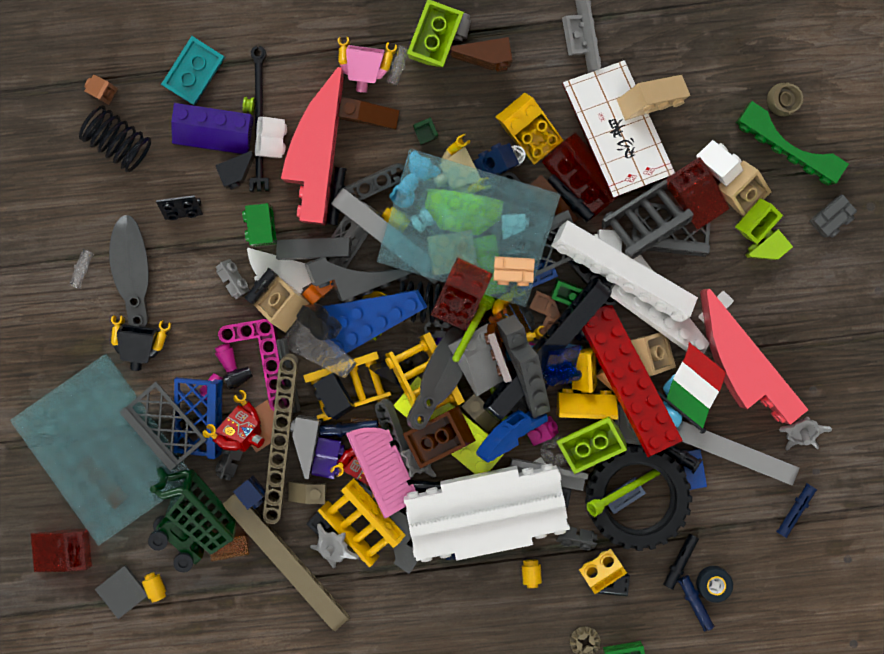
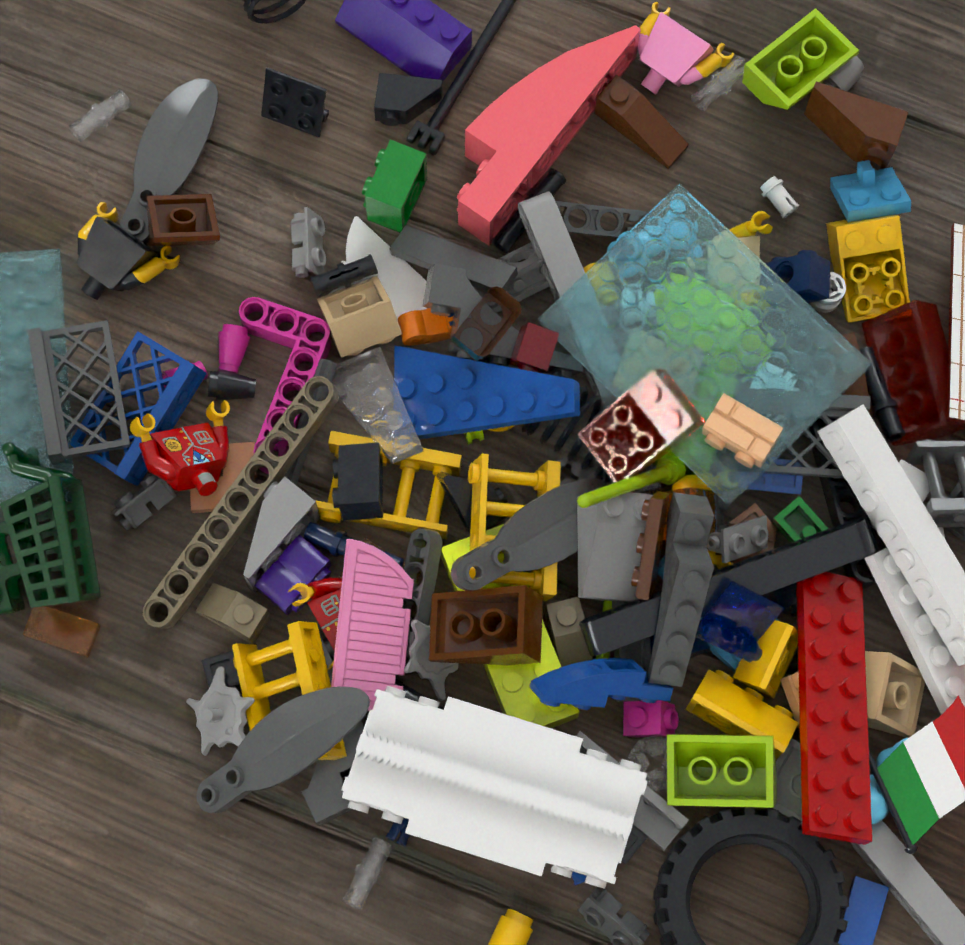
camera: 25 degrees right, 15 degrees down
(160, 305) = (182, 220): none -> reddish brown slope
(248, 105) = (476, 23): lime bush -> none
(250, 493) = (146, 558): dark blue brick -> none
(270, 137) = (480, 79): white brick -> none
(288, 563) = (137, 702): dark tan beam -> none
(319, 322) = (401, 363): clear smoke brick -> none
(359, 288) = (511, 311): none -> reddish brown piece
(374, 547) = (284, 744): none -> dark grey plant
(383, 280) = (534, 348): none -> dark red brick
(425, 131) = (713, 187): dark green panel -> none
(446, 581) = (367, 873): none -> clear pin
(462, 114) = (779, 196): none -> white pin
(510, 88) = (870, 193): none -> dark azure hinge
(540, 319) = (740, 539): none -> light grey hinge
(597, 506) = (677, 870): lime piece -> none
(627, 499) = (727, 893): sand blue plate -> none
(684, 458) = (856, 879): black pin -> none

